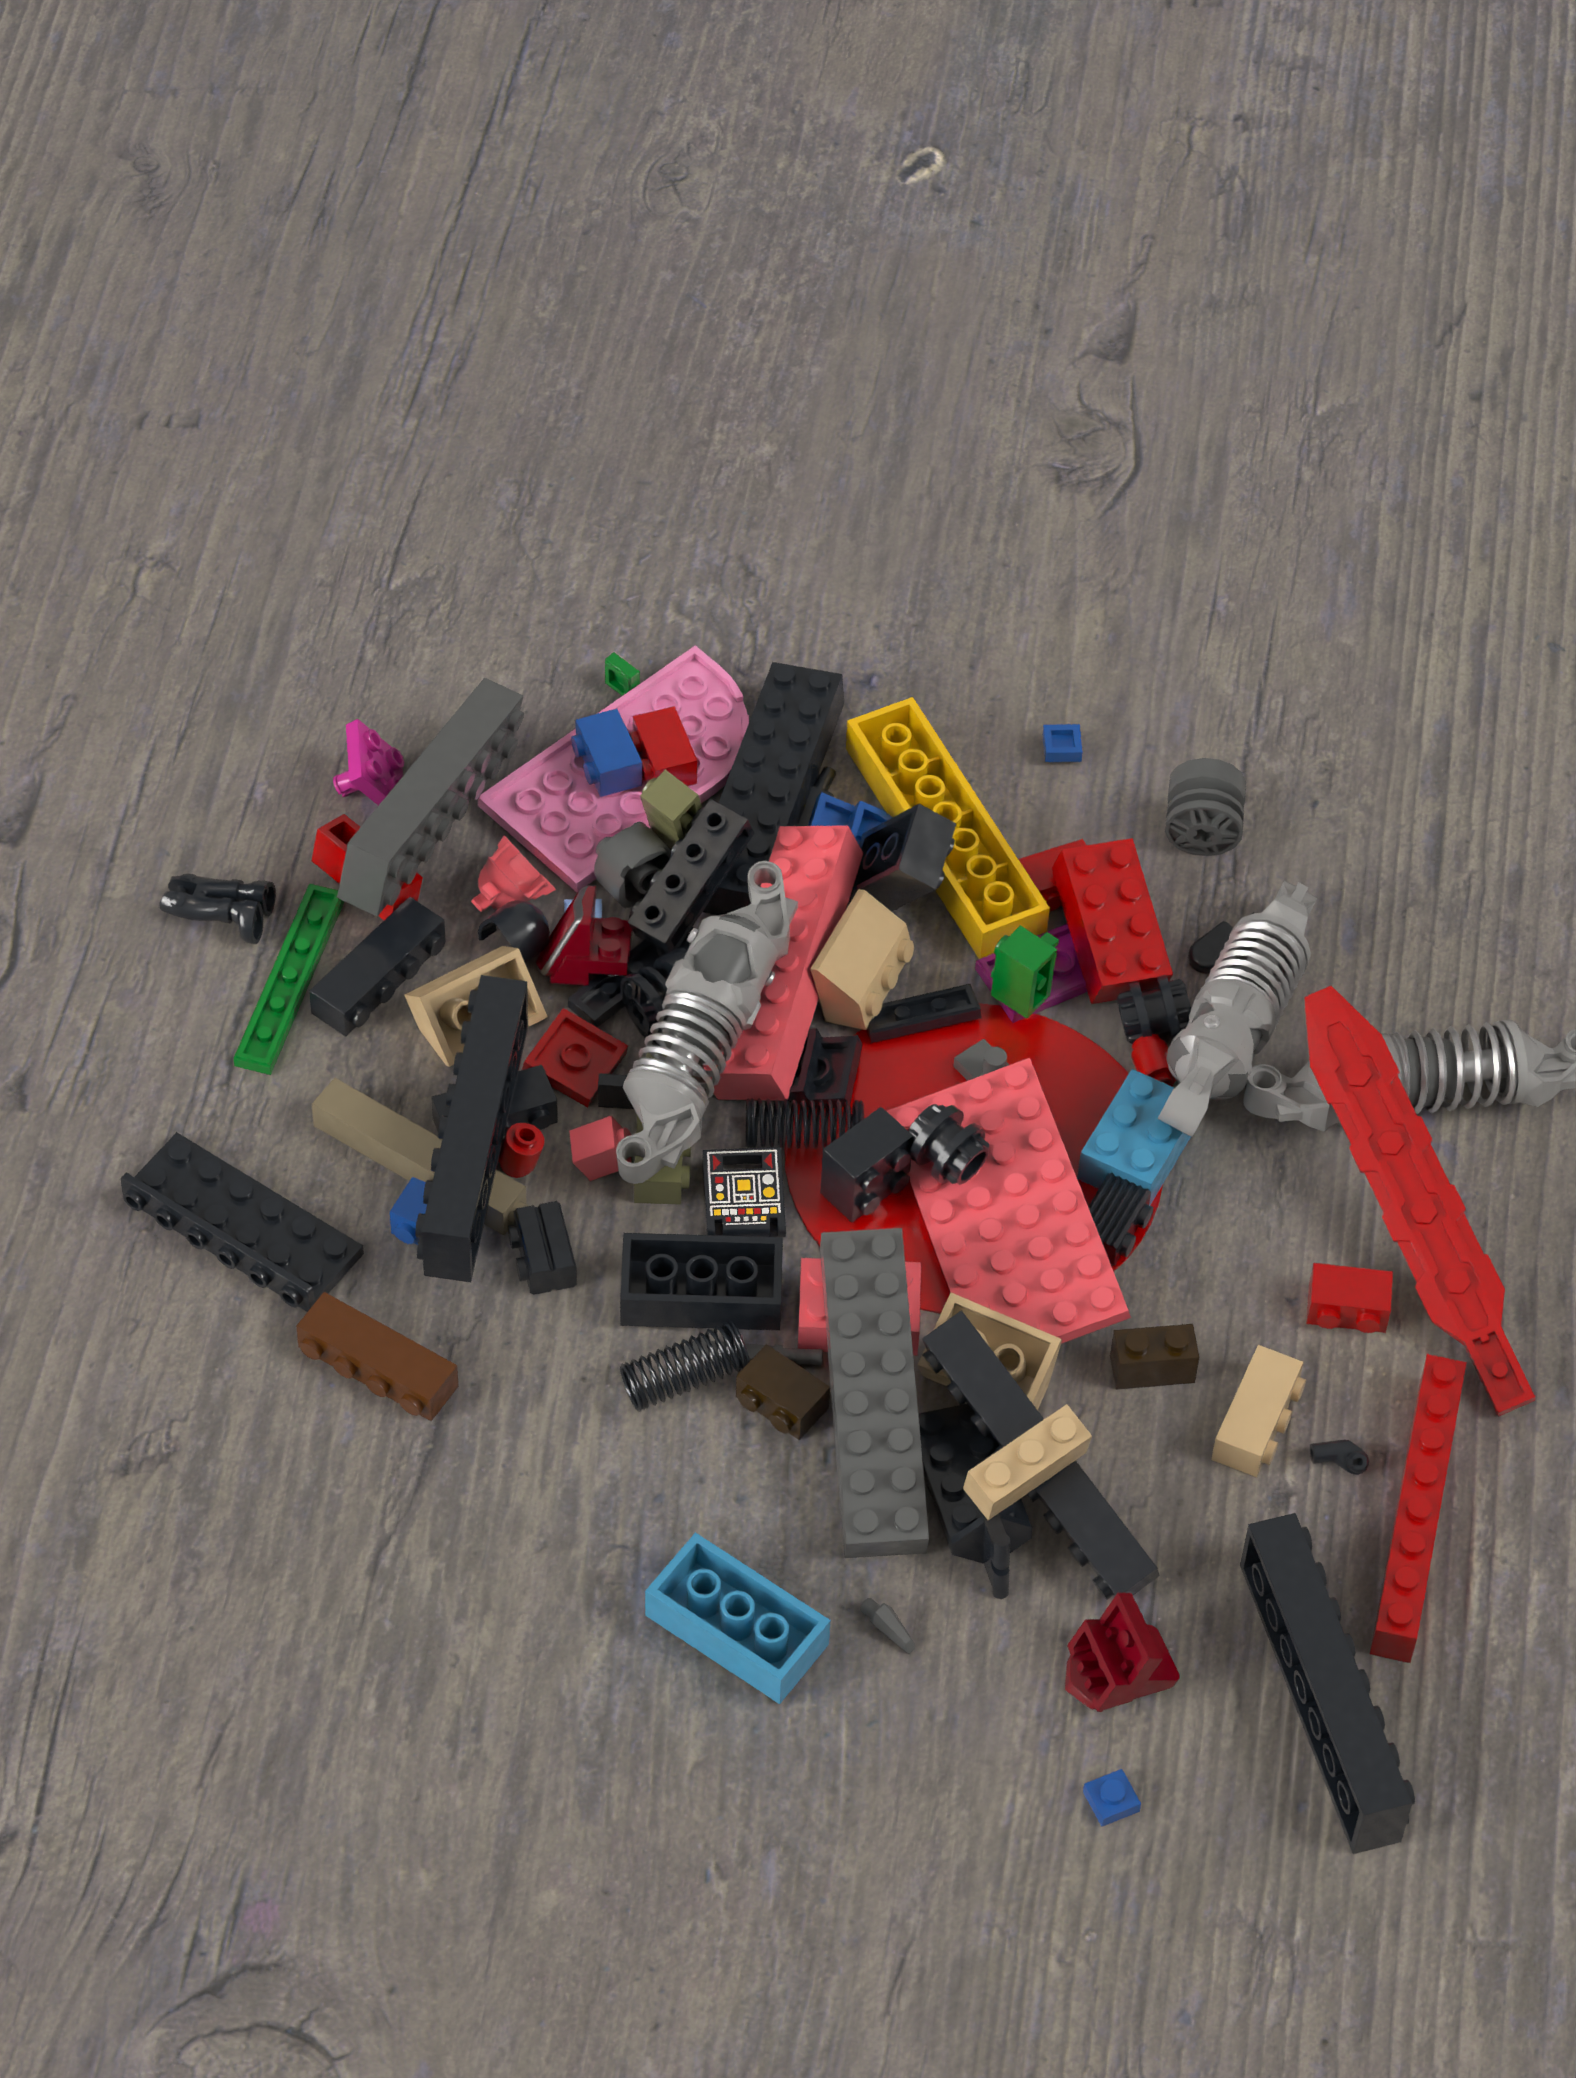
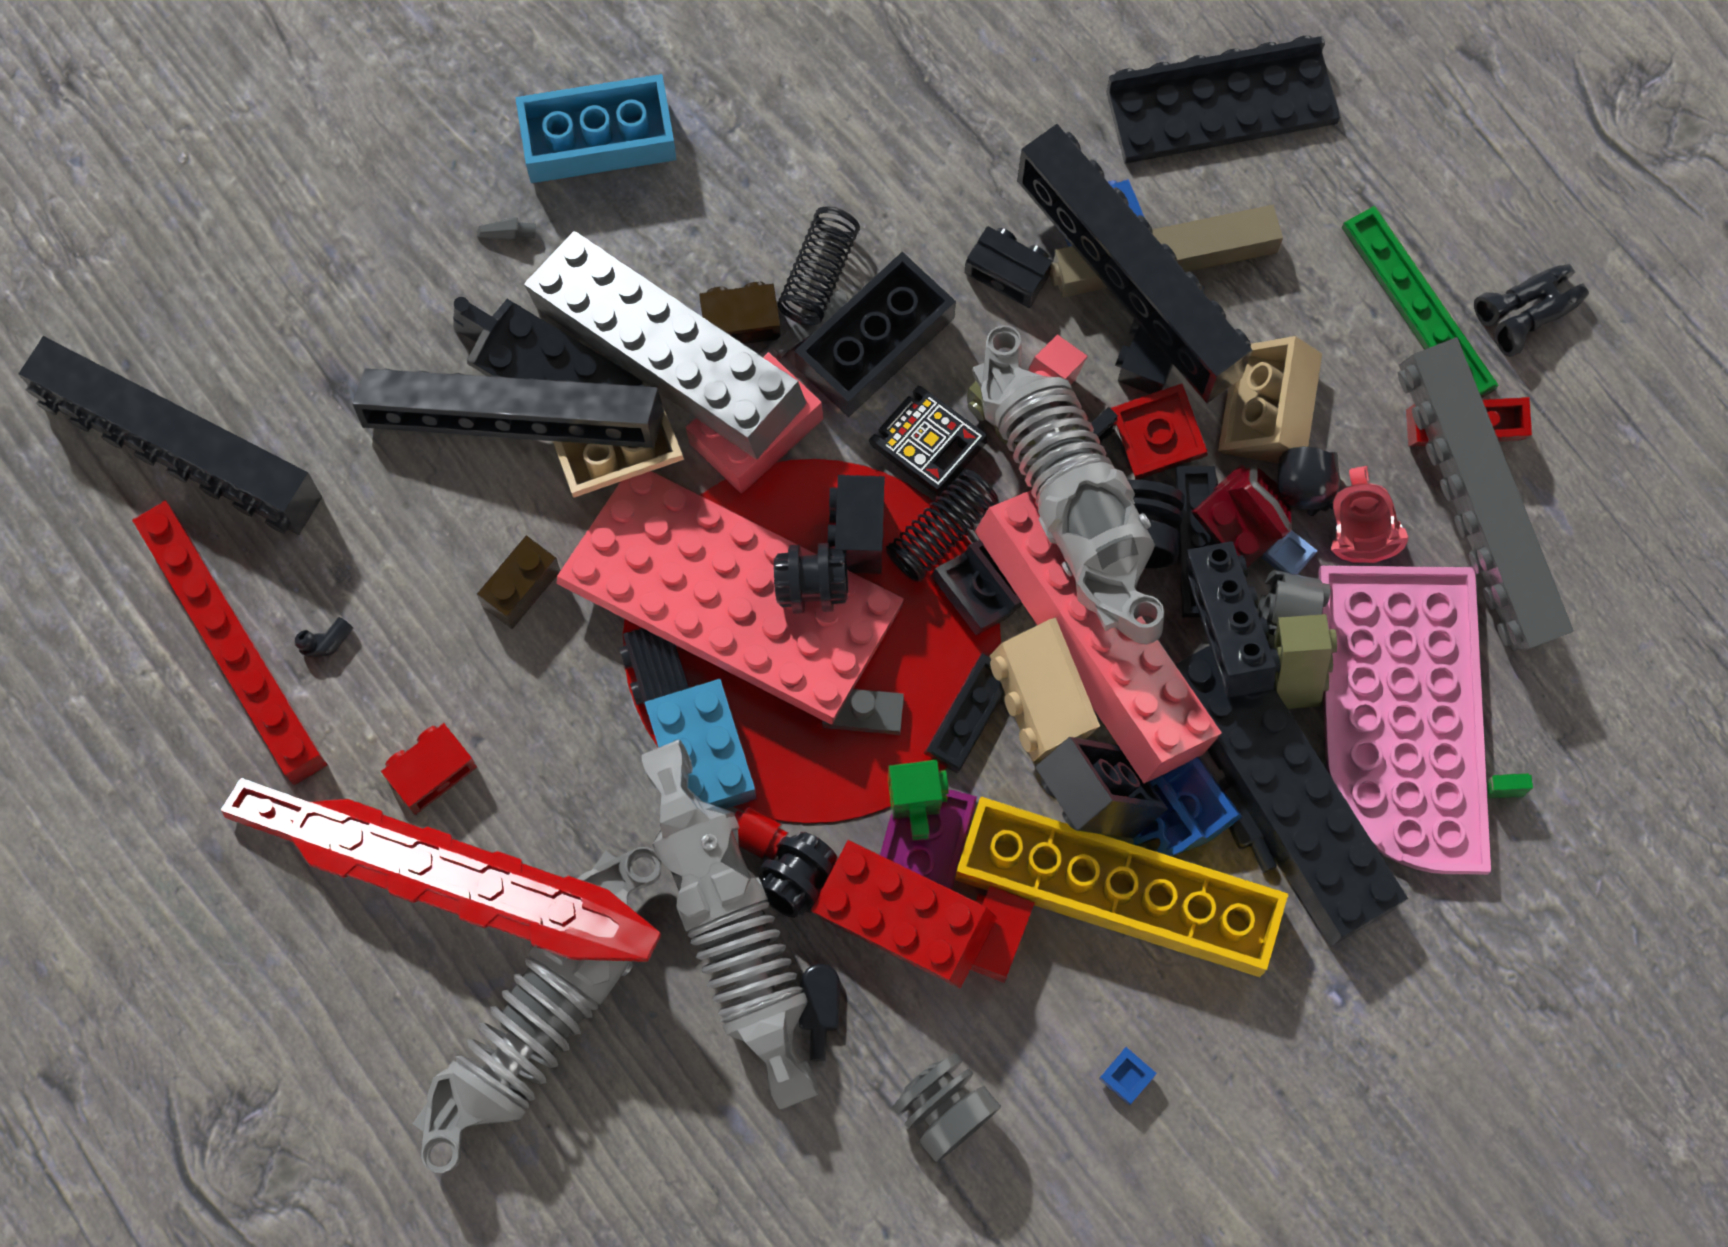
camera: 135 degrees right, 20 degrees up
(371, 764) = (1572, 497): dark pink plate -> none
(377, 1357) = (1022, 89): reddish brown brick -> none
(378, 966) = (1368, 363): black brick -> none
(521, 1149) = (1106, 324): red brick -> none
(607, 753) = (1425, 686): blue brick -> none
(664, 745) = (1390, 731): red brick -> none
(1027, 1462) = (491, 361): tan brick -> none
(1111, 1797) = (250, 251): blue plate -> none
(1118, 1658) = (323, 337): dark red piece -> none
(1259, 1411) = (407, 613): tan brick -> none

